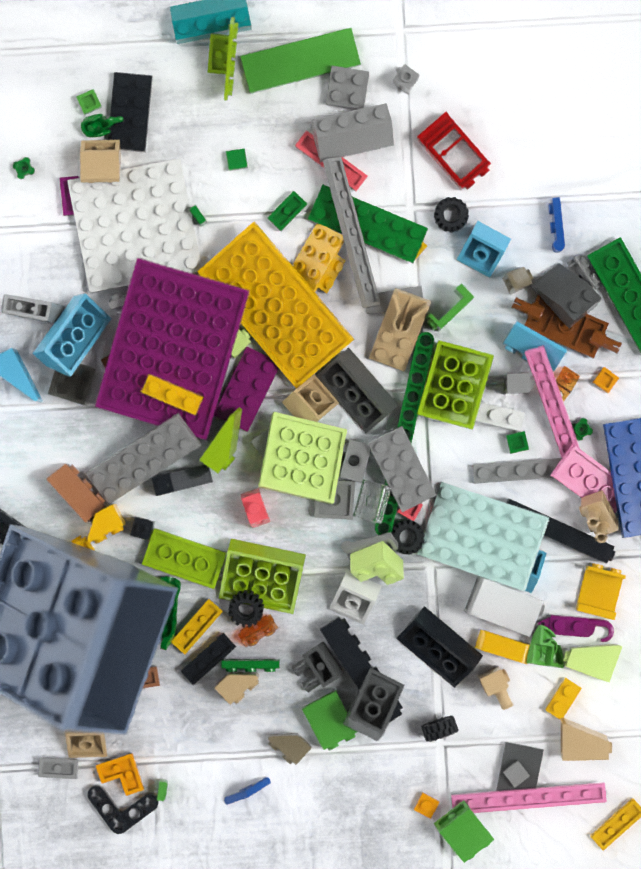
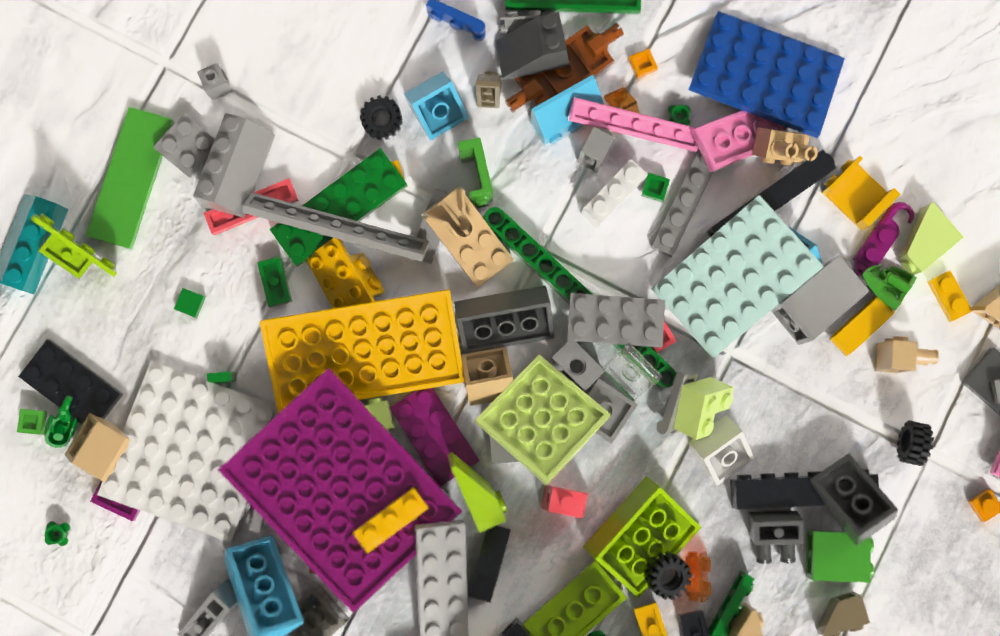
camera: 60 degrees left, 5 degrees down
(416, 529) = (693, 344): black tyre -> none
(439, 647) = (825, 391): black slope -> none
(454, 151) = (318, 77): red door -> none
(455, 385) = (560, 212): lime slope -> none

